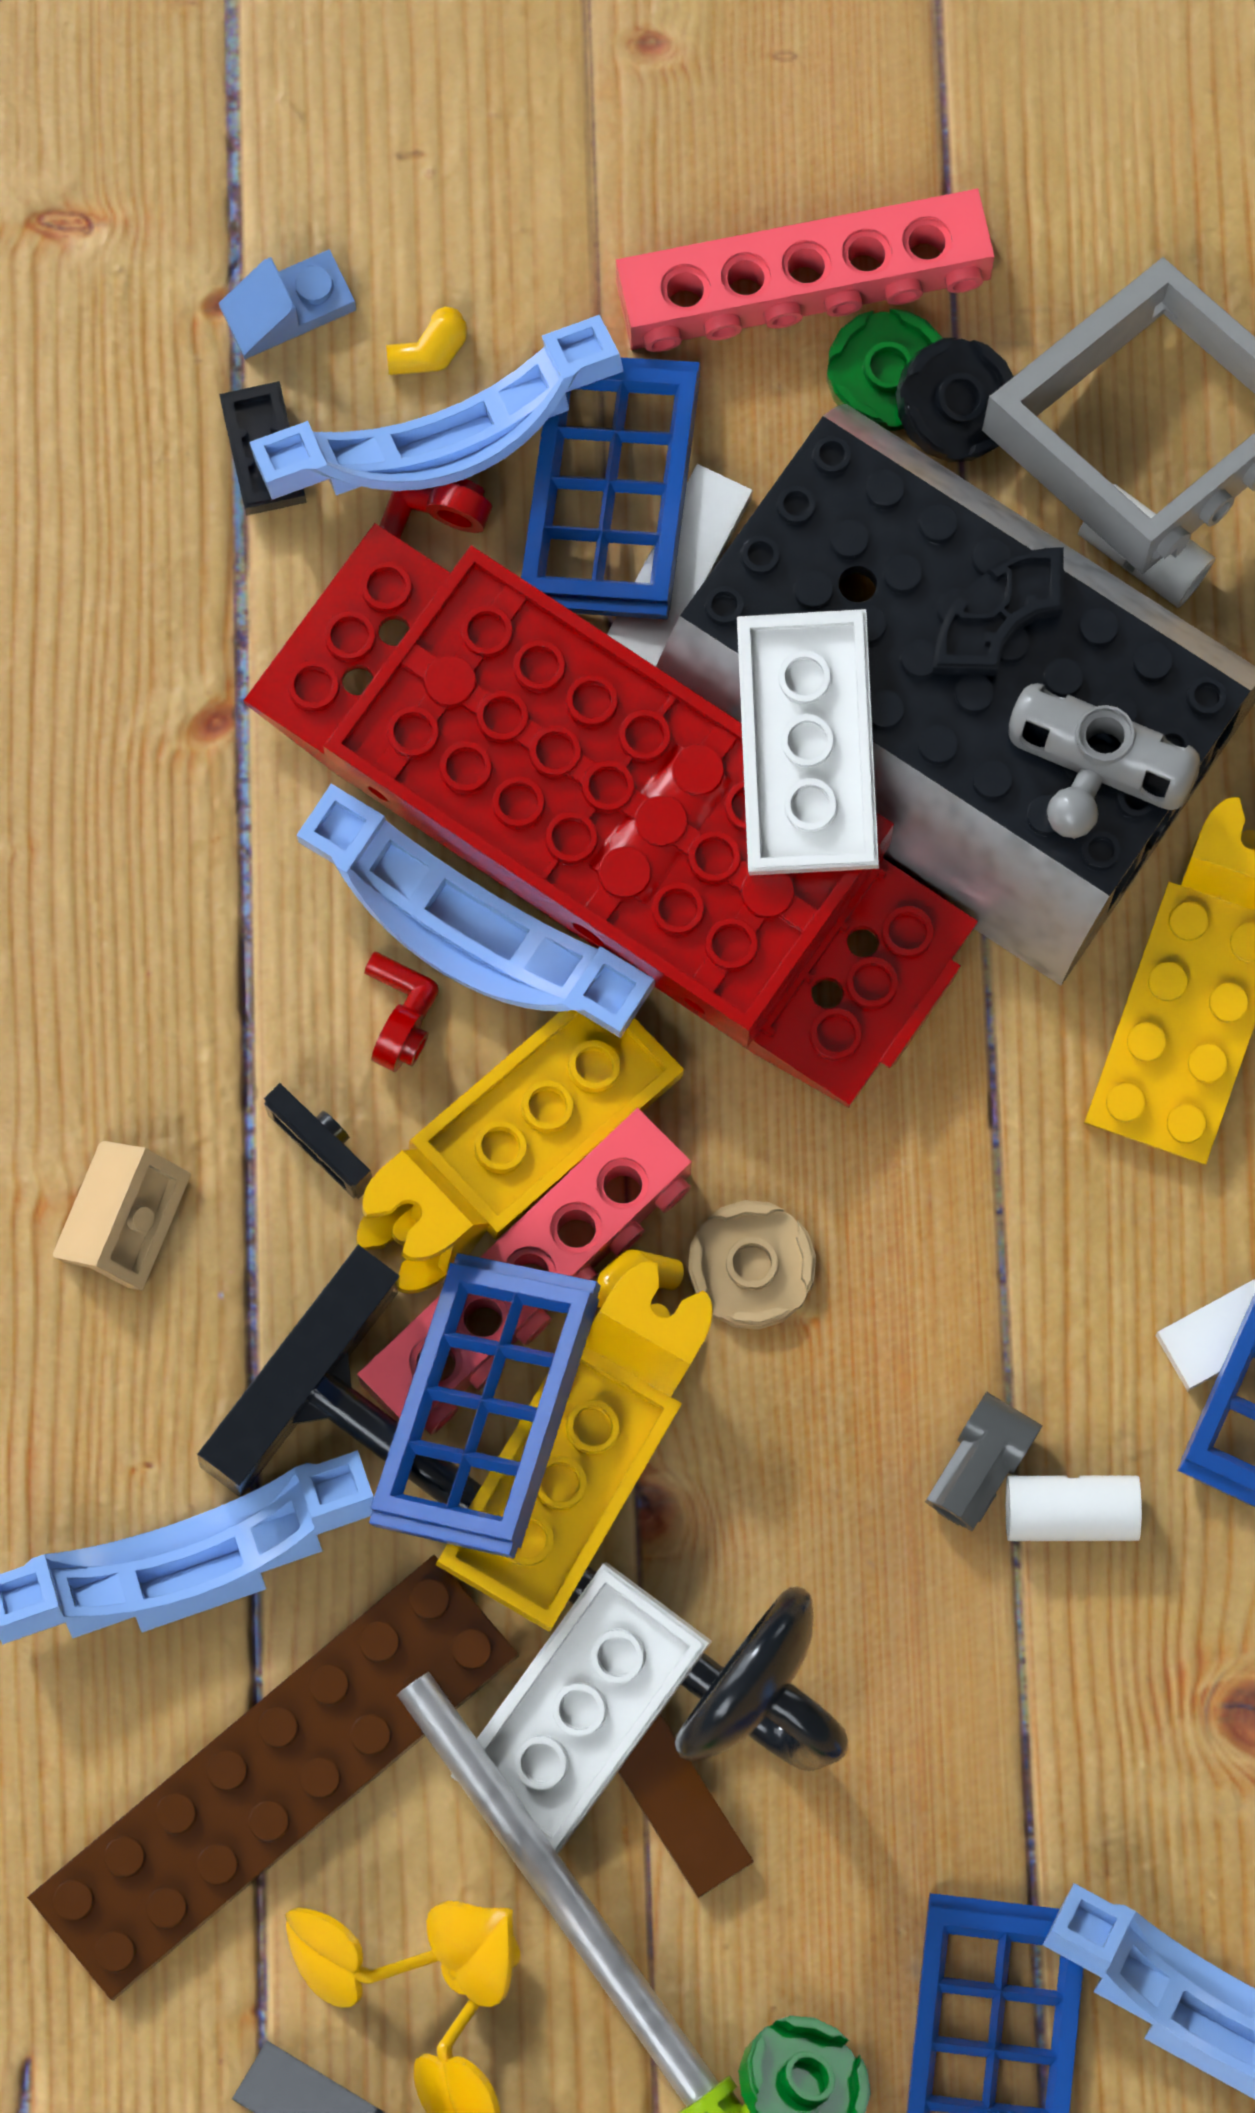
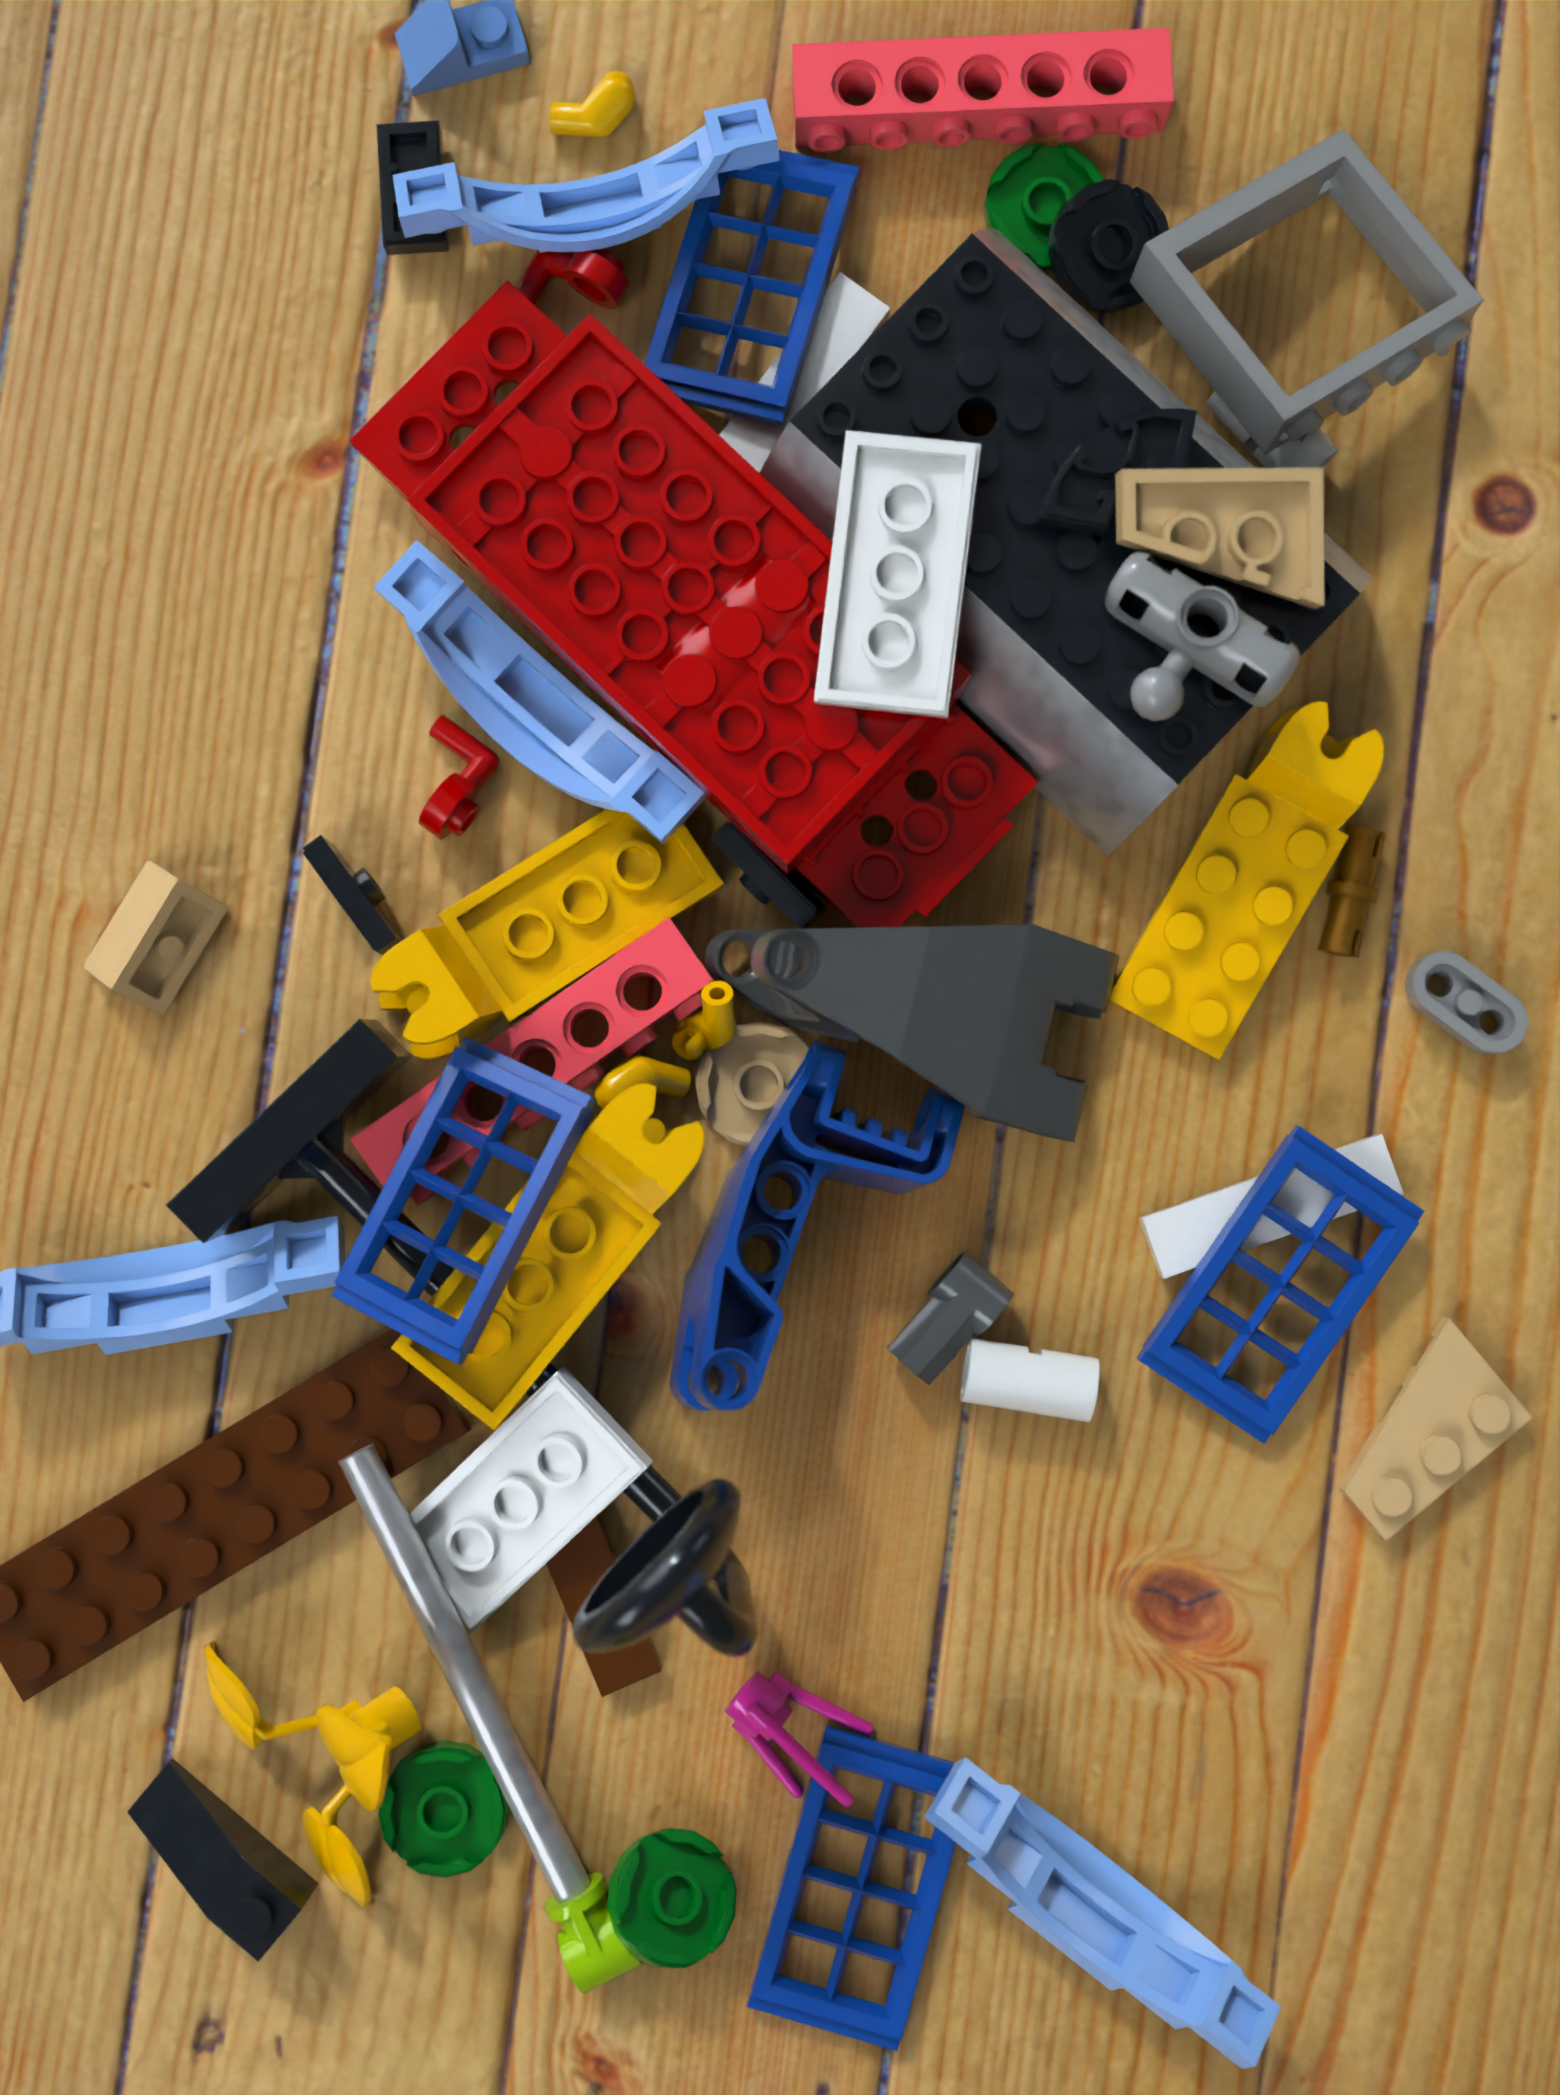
camera: 10 degrees right, 10 degrees up
(555, 2041) = (443, 1809): none -> green tile
(694, 1210) = (709, 1026): none -> yellow arm
(726, 1056) = (767, 880): none -> black plate
(763, 1463) = (731, 1311): none -> blue piece
(861, 1883) = (760, 1715): none -> dark pink plant
(926, 1136) = (944, 1000): none -> dark grey piece
(1113, 645) = (1231, 523): none -> tan wing

